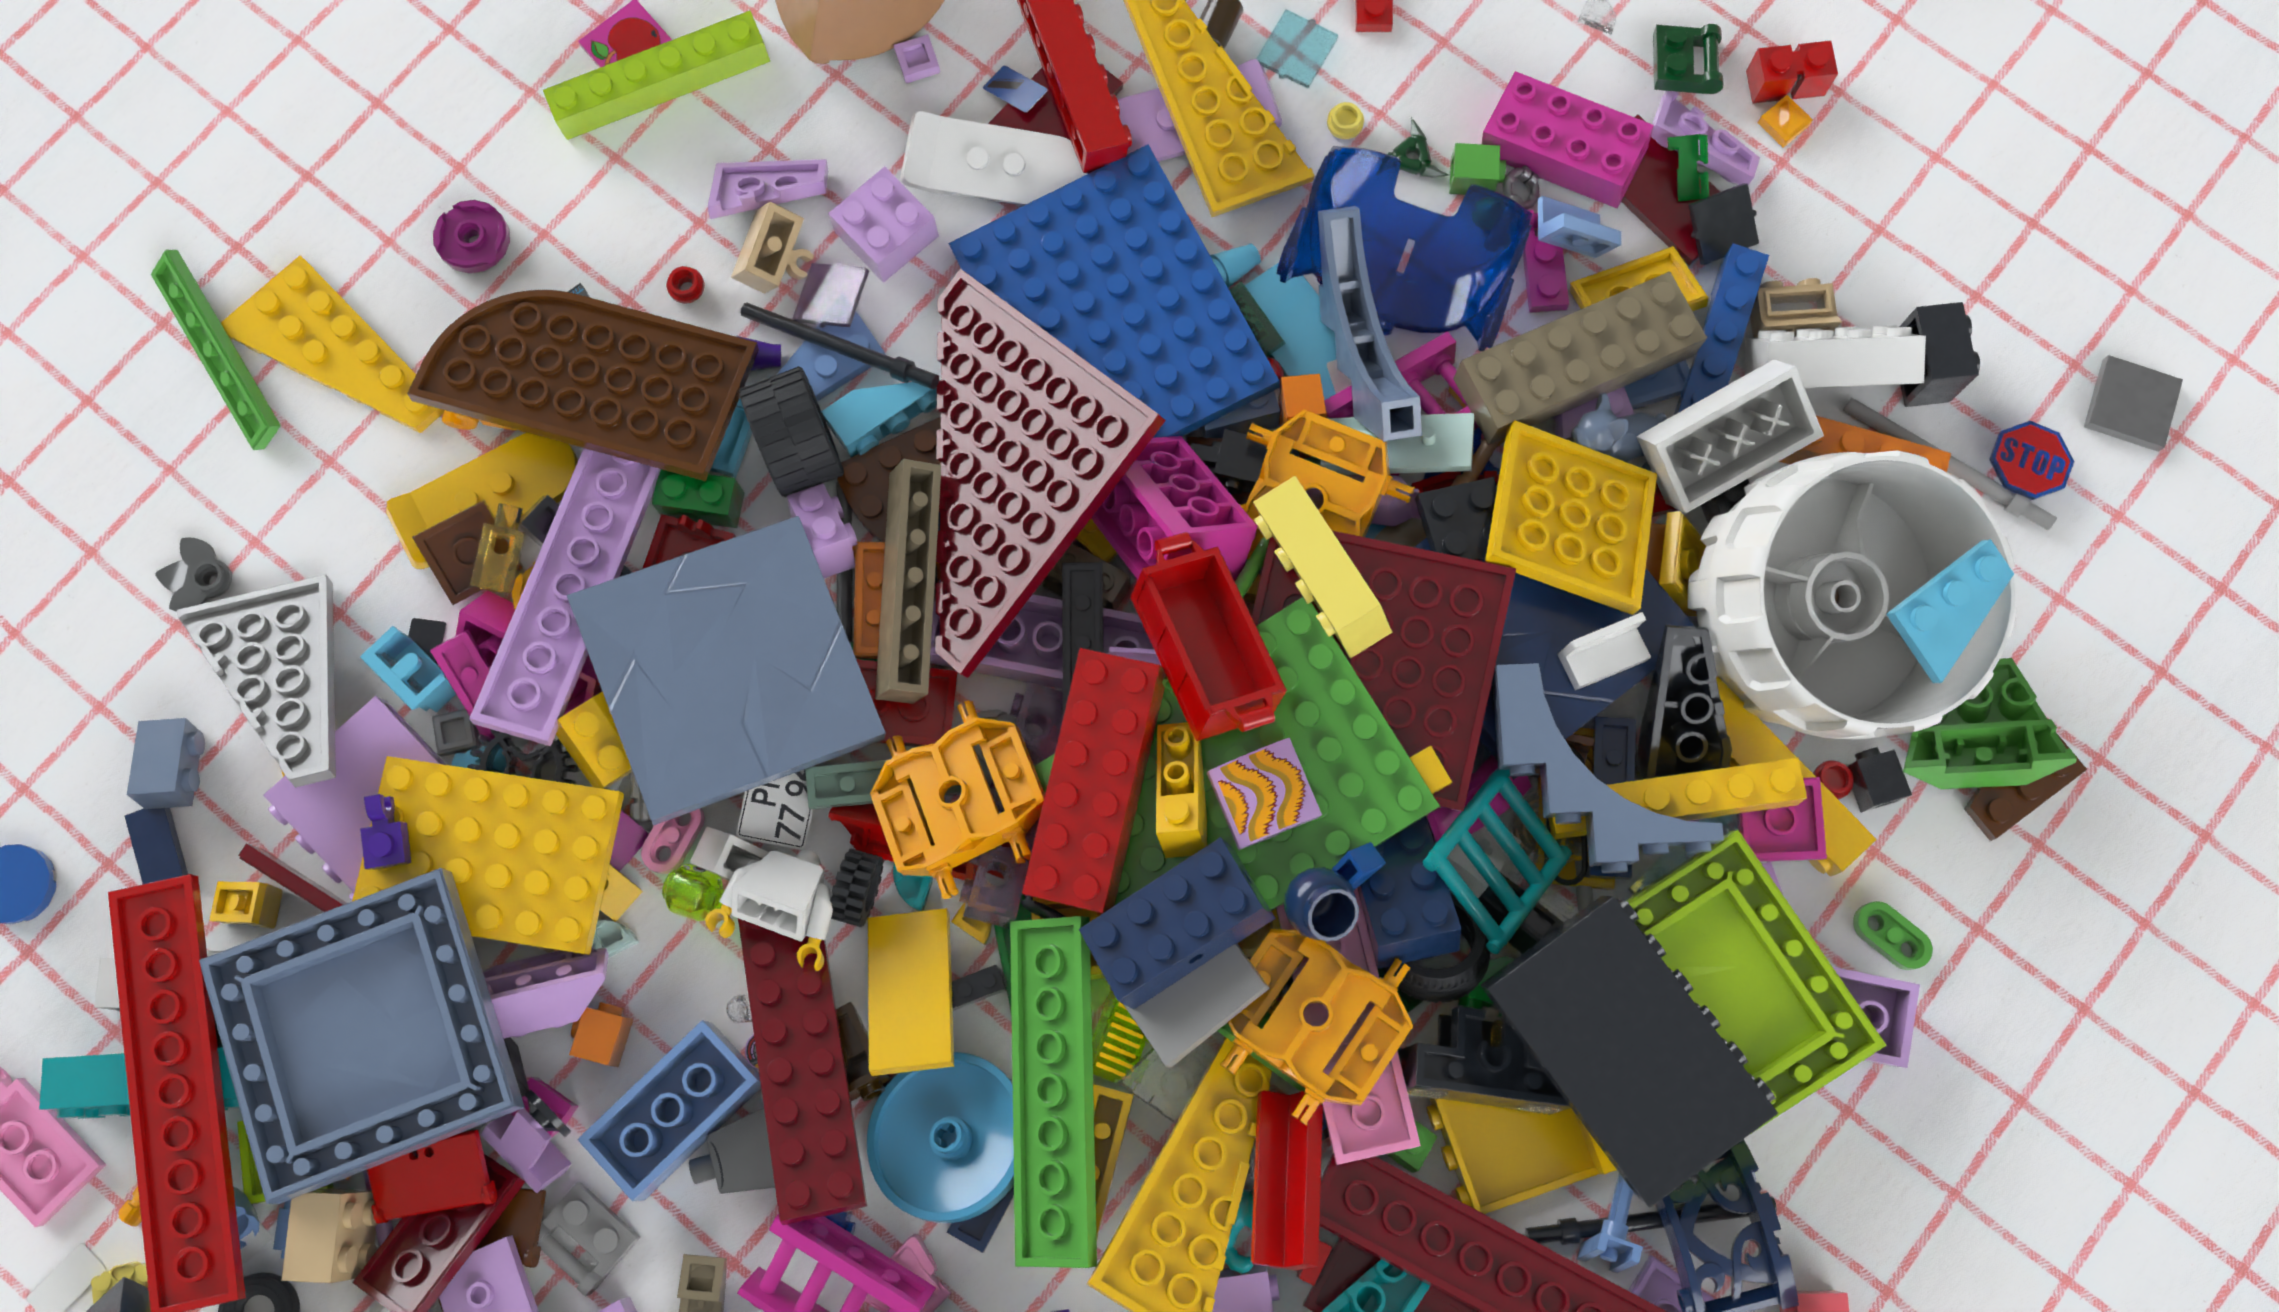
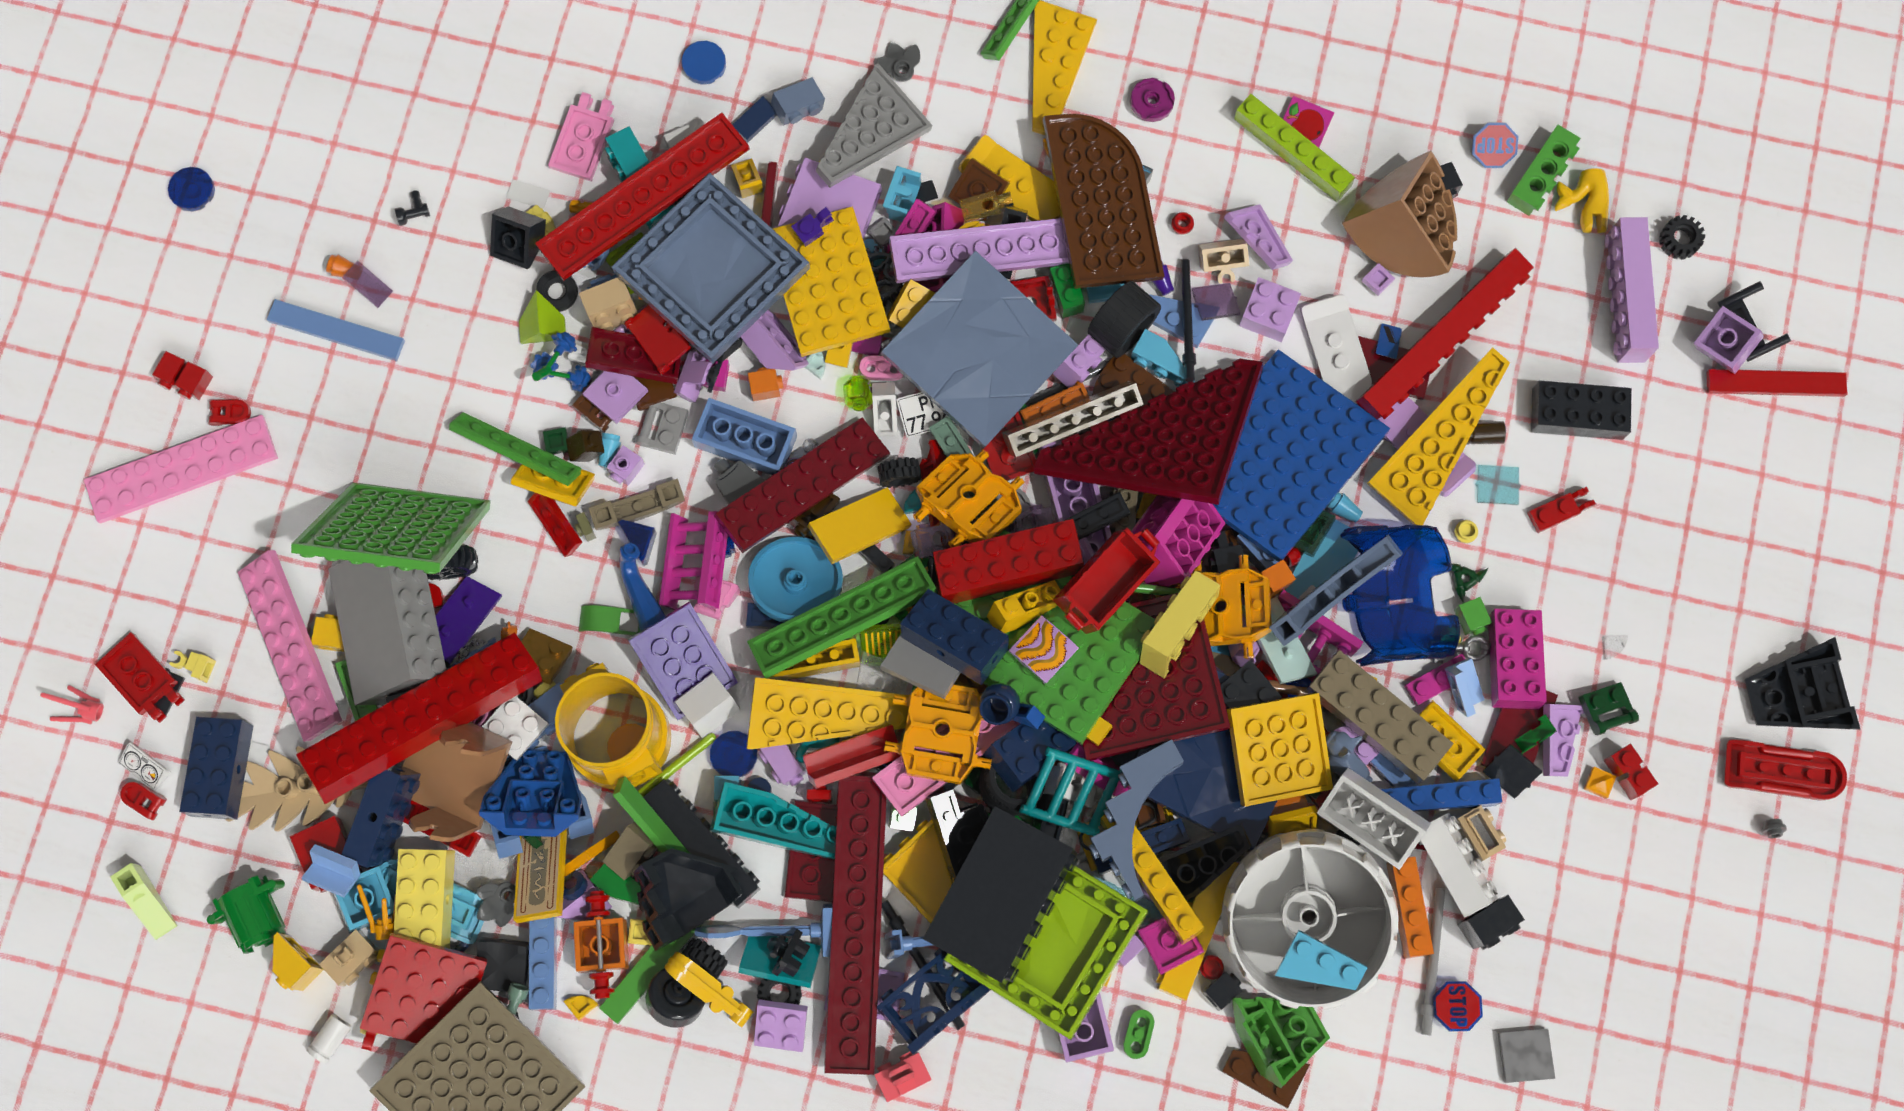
camera: 60 degrees right, 0 degrees up
(782, 896) = (876, 436): white torso -> none
(1604, 652) = (1212, 800): white panel -> none

